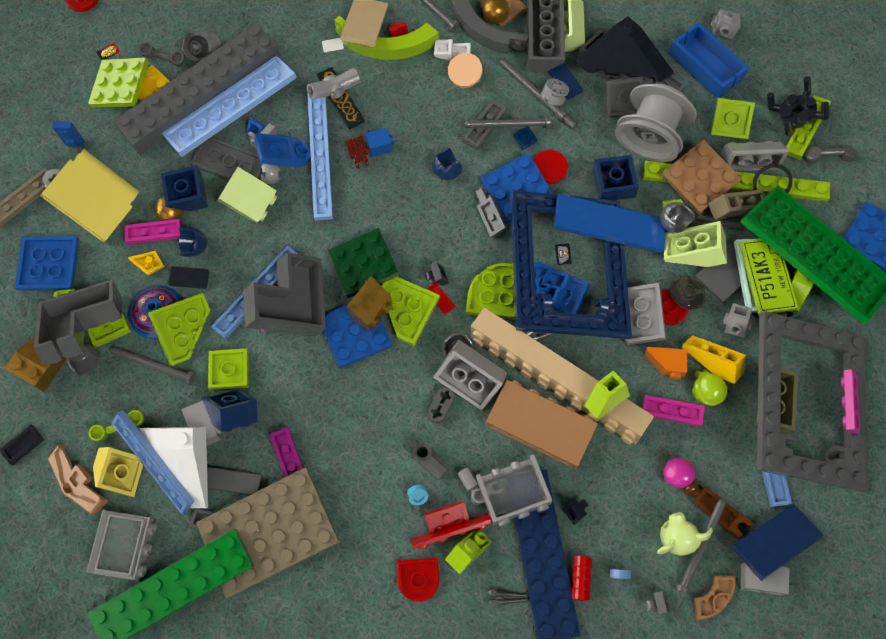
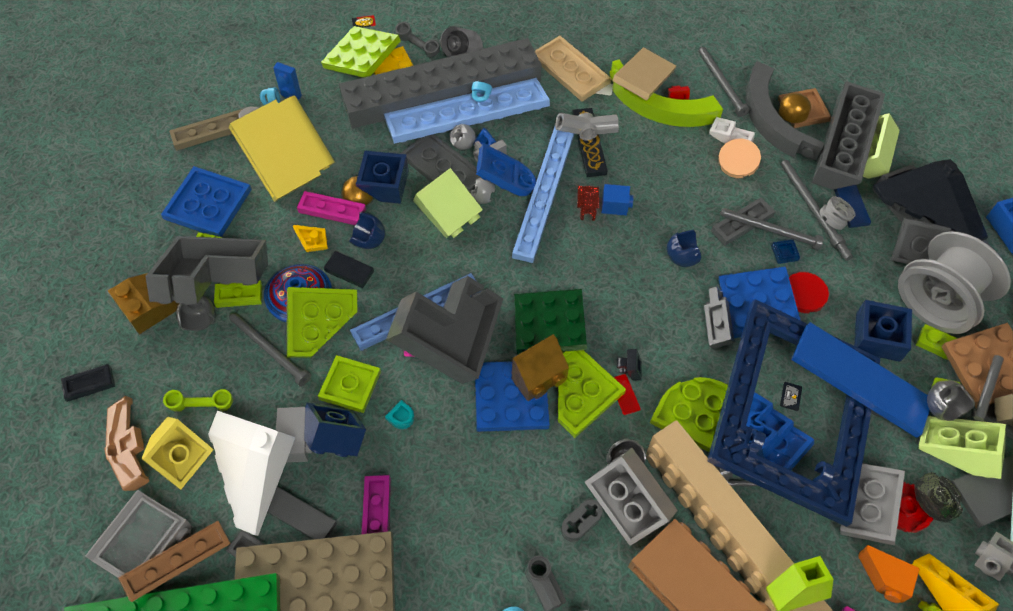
camera: 15 degrees right, 10 degrees down
(61, 150) = (272, 94): none -> medium azure tile
(152, 462) = (219, 458): medium blue tile -> none
(154, 549) = (173, 561): none -> medium nougat tile
(235, 82) = (481, 88): none -> medium azure tile
(235, 131) = (462, 136): none -> light grey piece
(278, 378) = (401, 416): none -> teal tile
(302, 35) = (572, 68): none -> tan tile
(702, 197) = (988, 388): none -> dark grey bar

